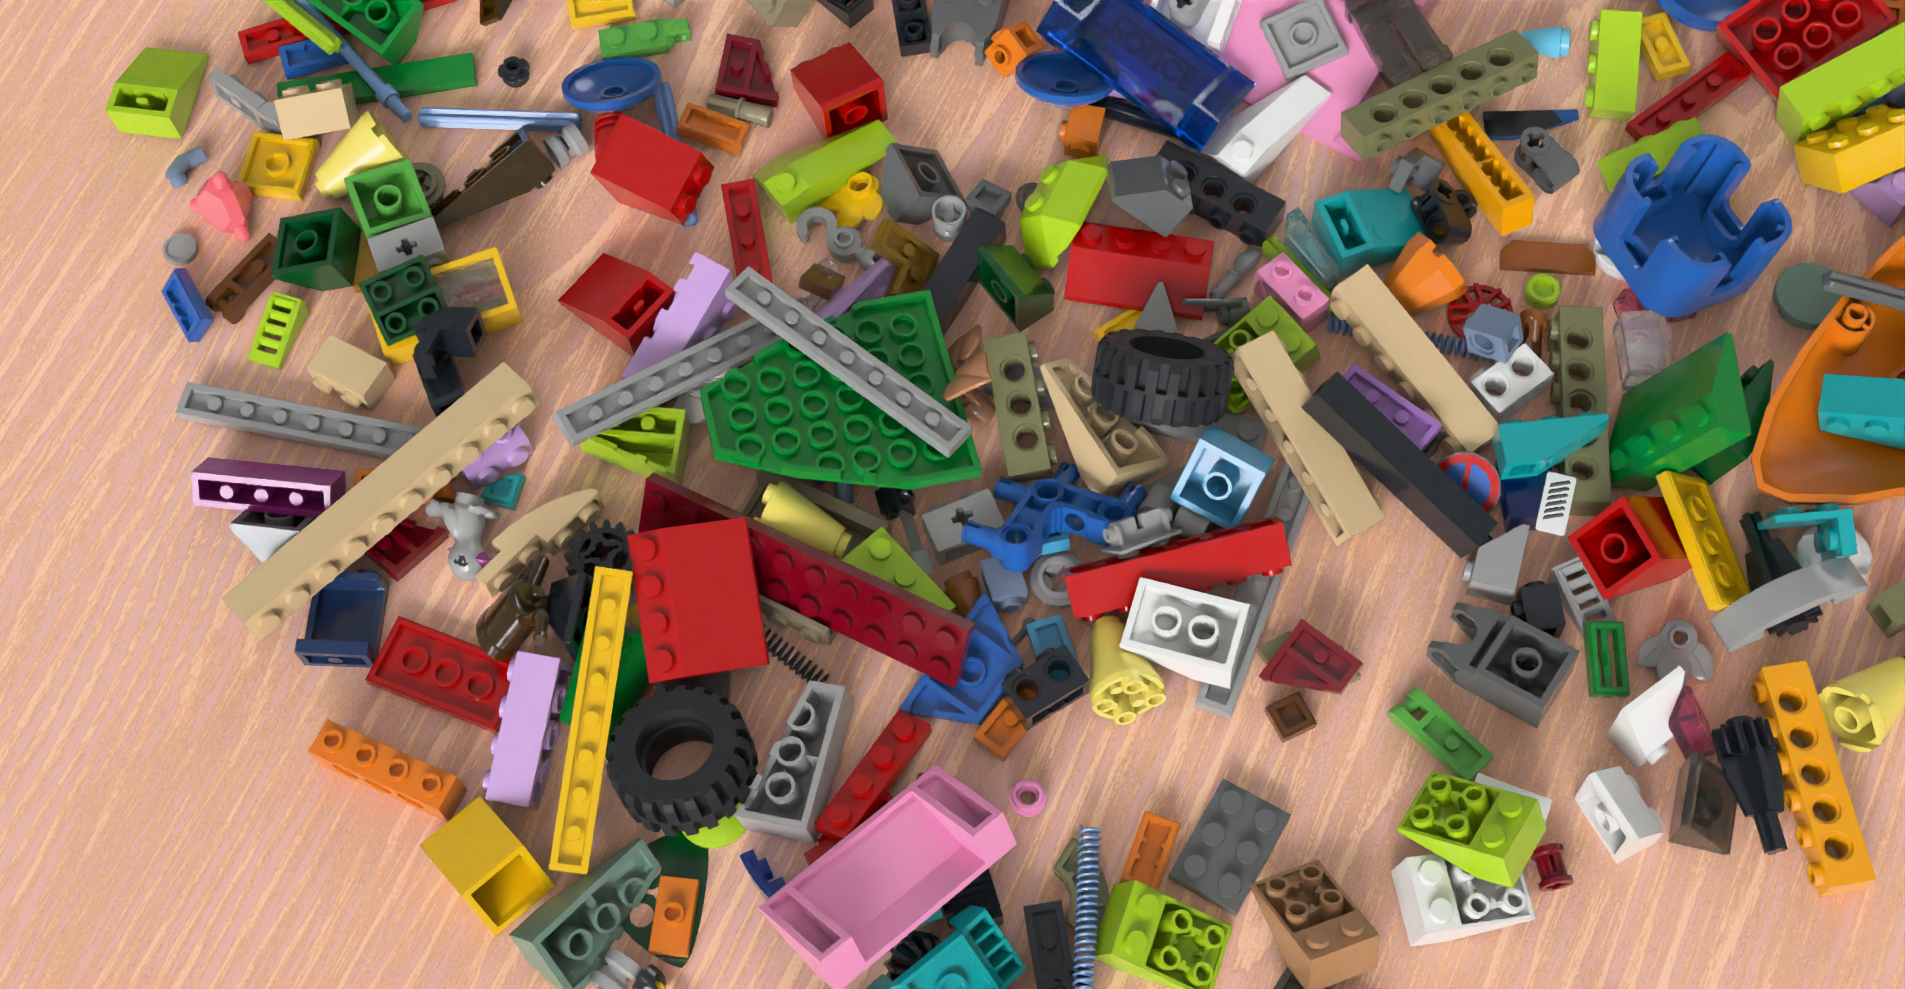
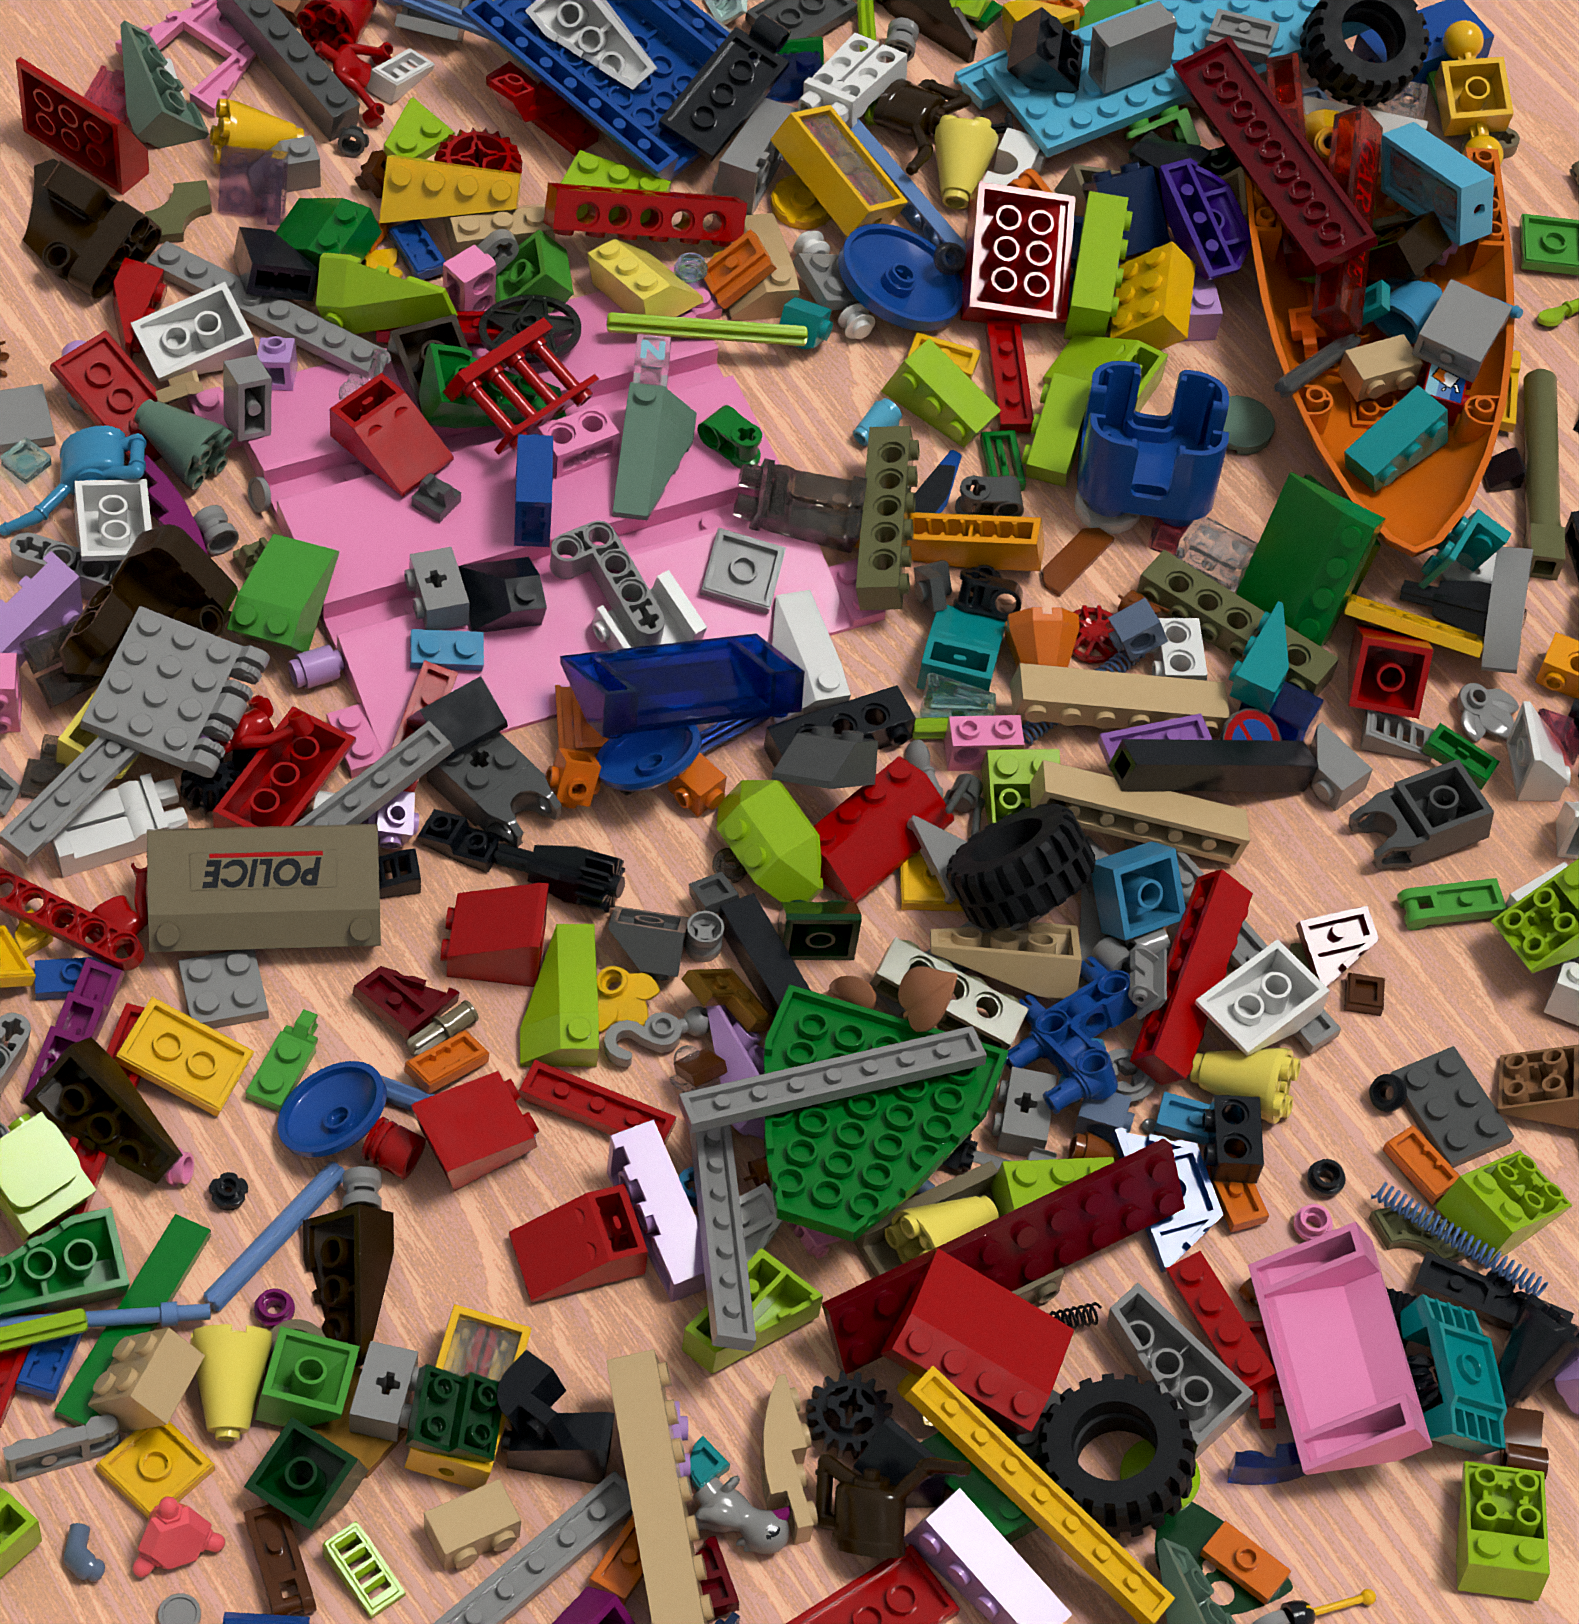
camera: 70 degrees left, 10 degrees down
(440, 147) = (274, 1298): none -> magenta plate
(512, 36) = (182, 1170): none -> bright pink plate
(934, 114) = (571, 871): none -> black piece
(1079, 773) = (1329, 1169): none -> black plate
(1199, 786) = (1378, 1092): none -> black plate
(1540, 607) = (1391, 765): black brick -> none
(1542, 291) = (1104, 582): lime tile -> none
(1555, 503) = (1316, 692): white sticker -> none
(1619, 132) = (988, 455): none -> green tile
(1775, 167) = (1086, 353): none -> lime slope

